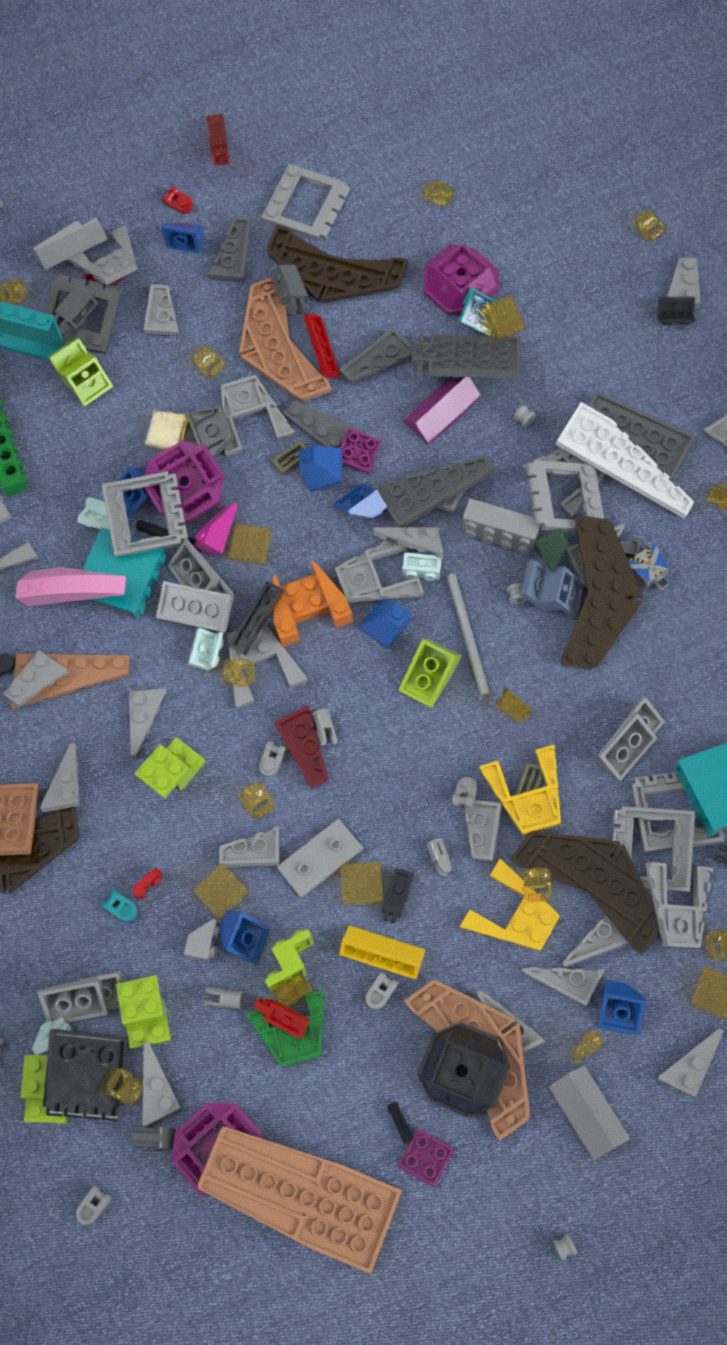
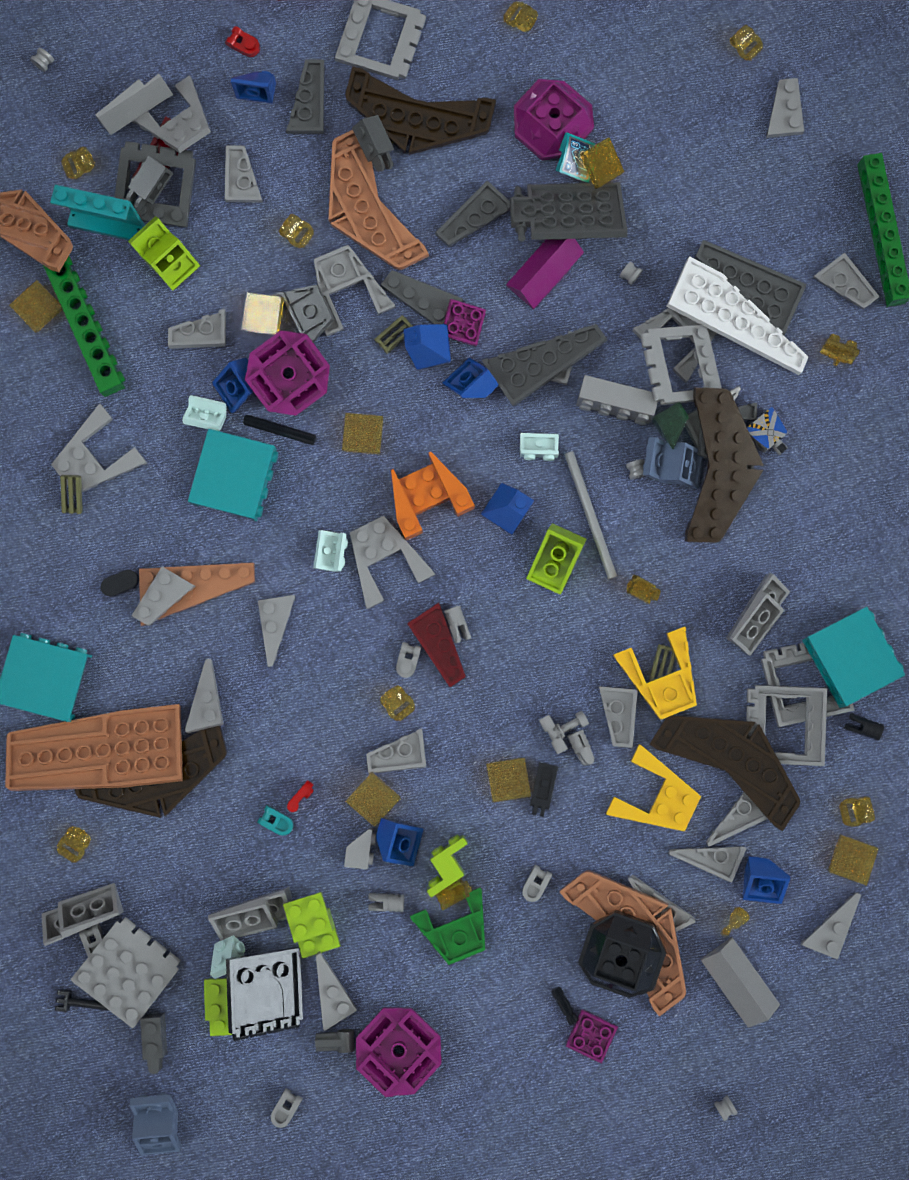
camera: 10 degrees left, 15 degrees up
(67, 585) = (181, 494): bright pink wedge -> none
(109, 445) = (205, 332): none -> light grey wing
(118, 519) = (226, 422): light grey hinge -> none
(129, 1089) = (307, 998): clear yellow piece -> none
(170, 767) = (308, 679): lime bracket -> none
(194, 606) = (314, 508): light grey plate -> none
(195, 572) = (316, 478): light grey slope -> none
(214, 533) = (326, 423): dark pink slope -> none
(233, 672) = (360, 573): clear yellow piece -> none
(256, 618) = (378, 518): black plate -> none
(282, 1017) = (445, 919): red hinge -> none
(301, 1196) = (480, 1088): nougat wing -> none
(320, 858) = (465, 756): light grey plate -> none
(321, 346) = (414, 205): red plate -> none
(360, 580) = (477, 463): light grey wing -> none
(382, 952) = (534, 845): yellow brick -> none
(414, 538) = (533, 417): light grey wing -> none
(416, 840) = (557, 732): none -> light grey bar
(465, 792) = (603, 676): light grey plate -> none
(534, 879) = (678, 764): clear yellow piece -> none
(676, 310) = (779, 142): black bracket -> none
(679, 924) = (817, 797): light grey wing -> none

